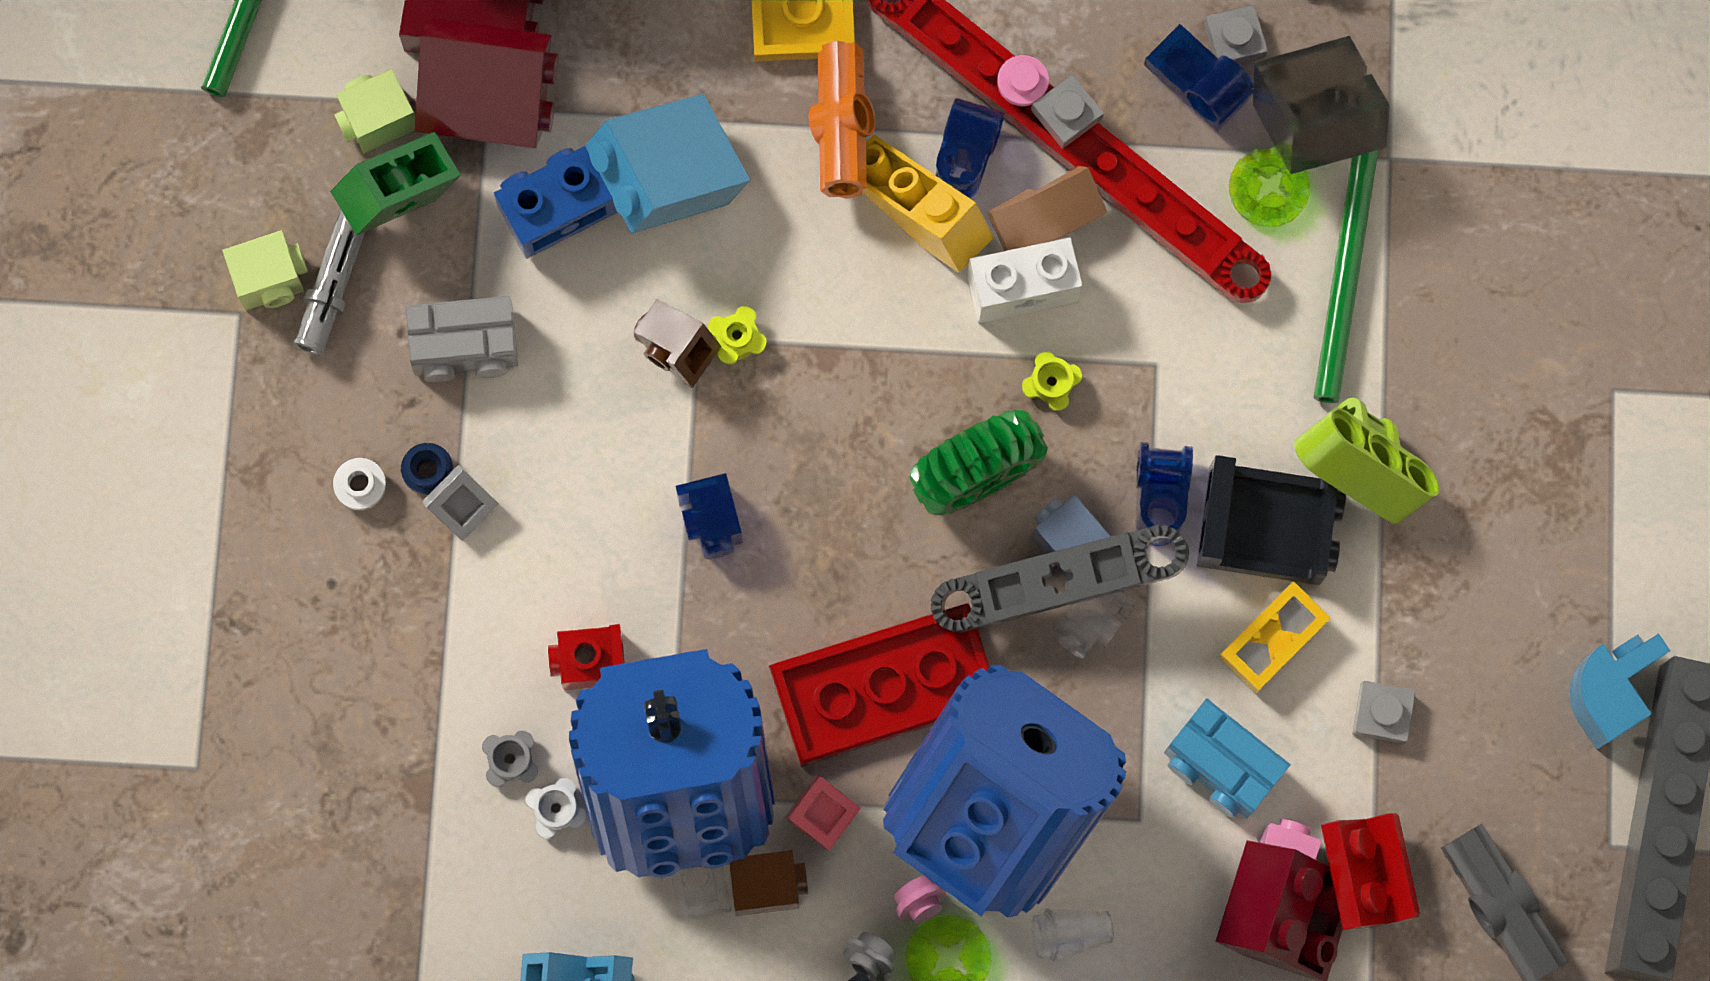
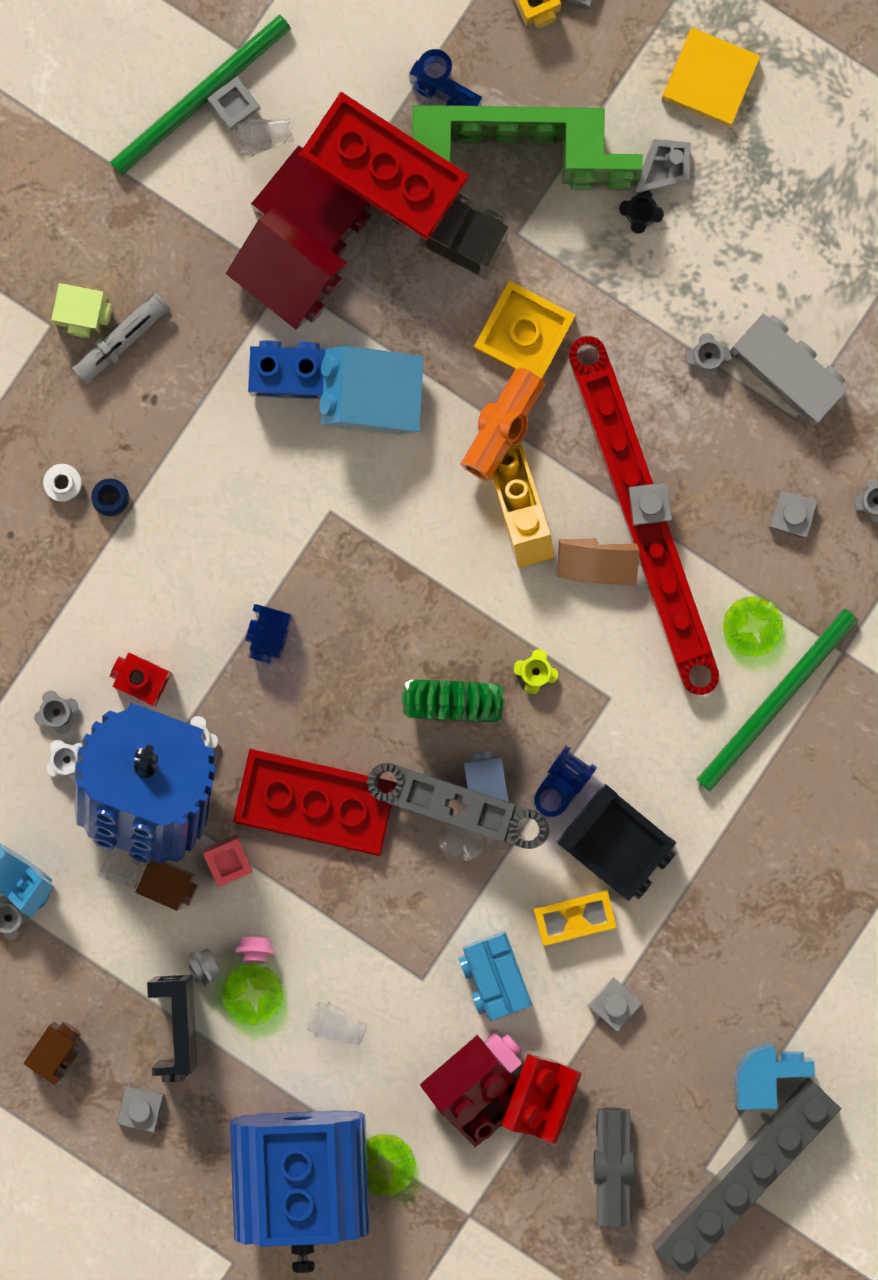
camera: 35 degrees right, 10 degrees up
(374, 111) = (209, 242): yellowish green brick -> none
(395, 183) = (192, 303): green brick -> none
(460, 502) = (117, 532): light grey plate -> none
(462, 338) = (179, 426): light grey brick -> none
(676, 341) = (310, 509): brick -> none
(741, 348) = (347, 516): neon yellow plate -> none
(968, 144) = (577, 484): clear blue piece -> none
(1002, 792) = (337, 922): blue piece -> none
(1022, 80) = (633, 467): bright pink plate -> none
(1024, 280) = (556, 597): white brick -> none
(1206, 83) = (751, 529): clear blue plate -> none
(1320, 105) = (810, 594): clear smoke piece -> none
(1367, 462) = (698, 843): lime piece -> none

